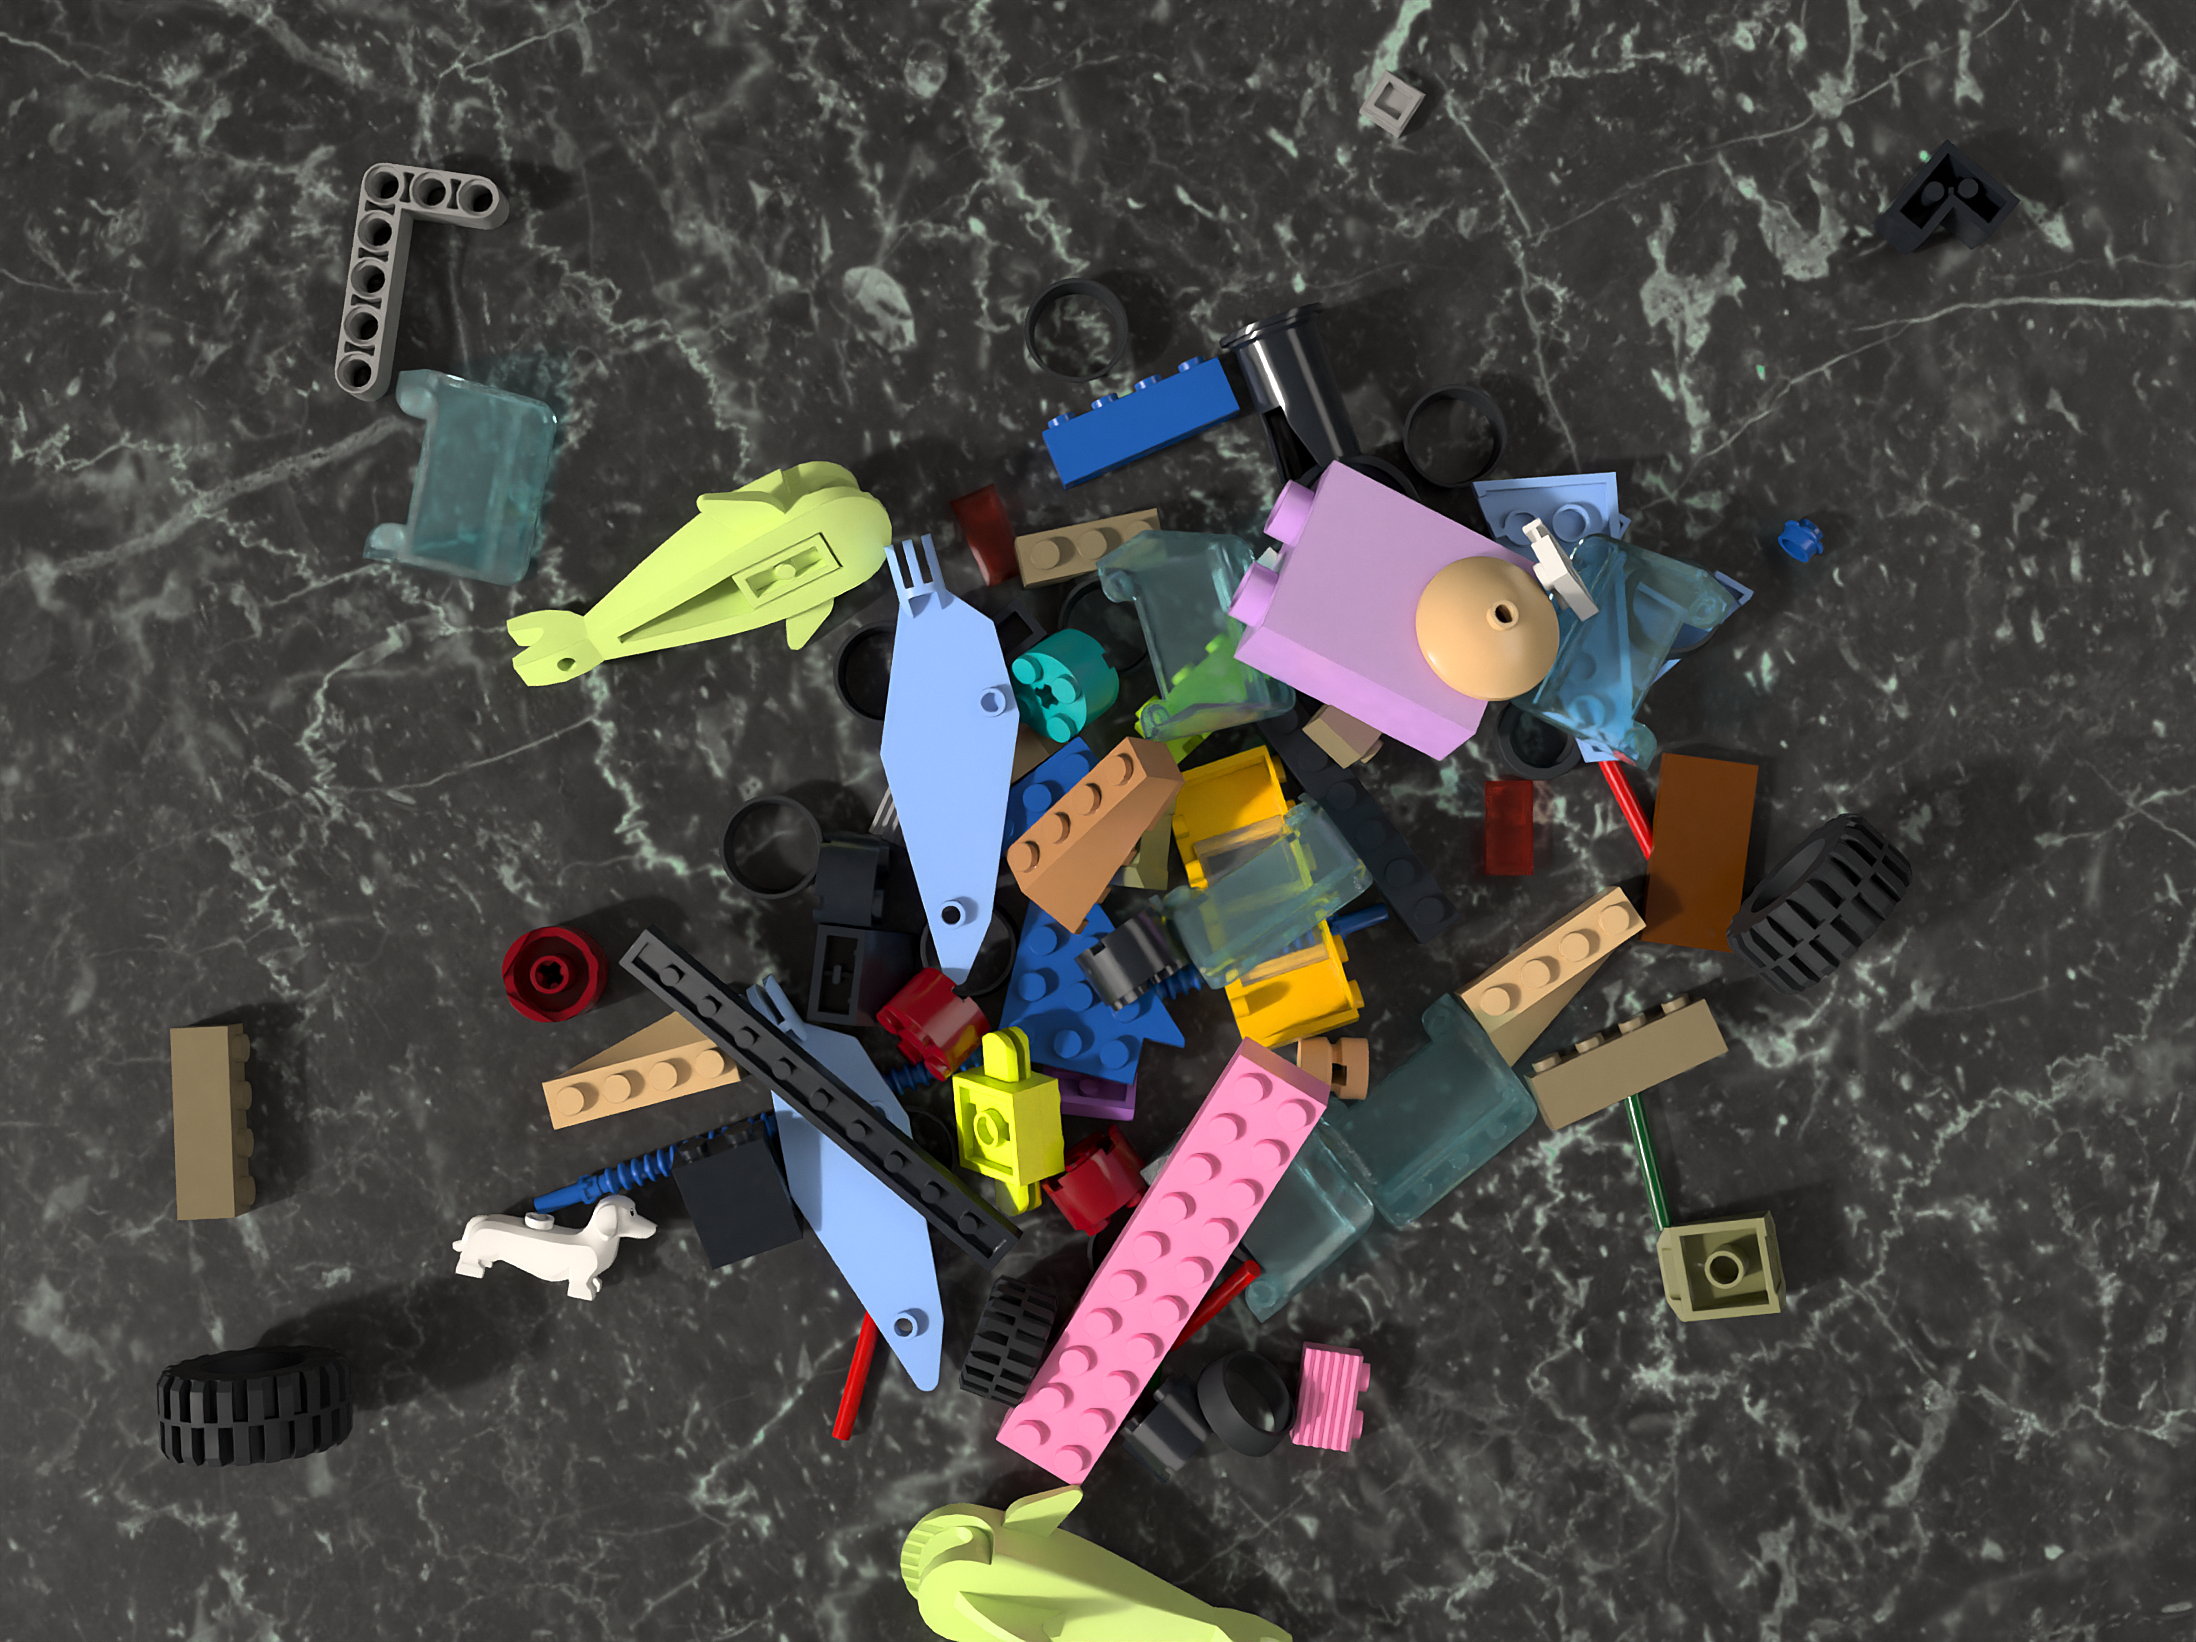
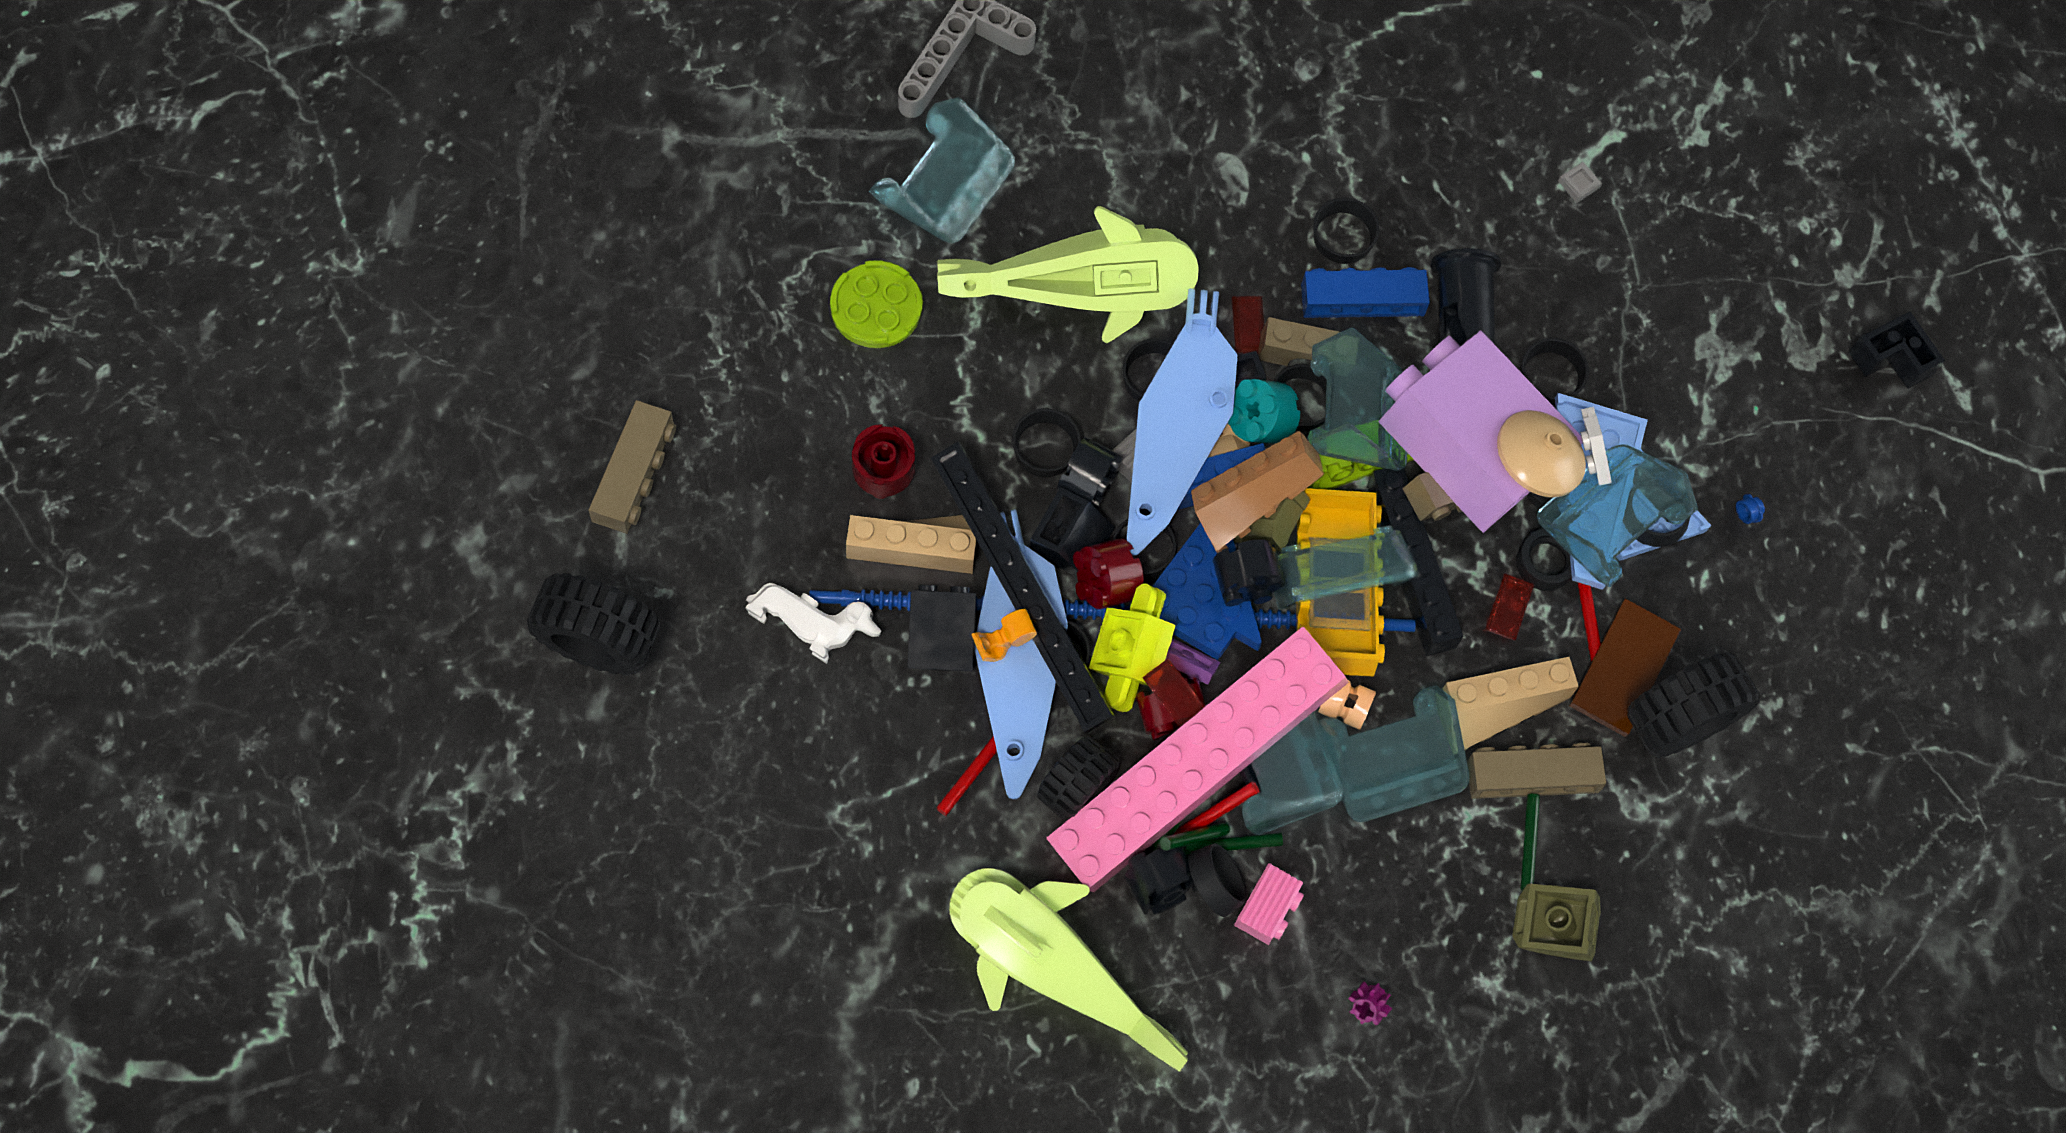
camera: 15 degrees right, 20 degrees down
(448, 724) = (876, 304): none -> lime tile
(826, 1182) = (1015, 631): none -> light orange leg
(1094, 1186) = (1173, 692): none -> clear red tile
(1193, 1358) = (1194, 836): none -> dark green bar
(1241, 1328) = (1240, 843): none -> dark green bar
(1509, 1480) = (1370, 1003): none -> magenta gear

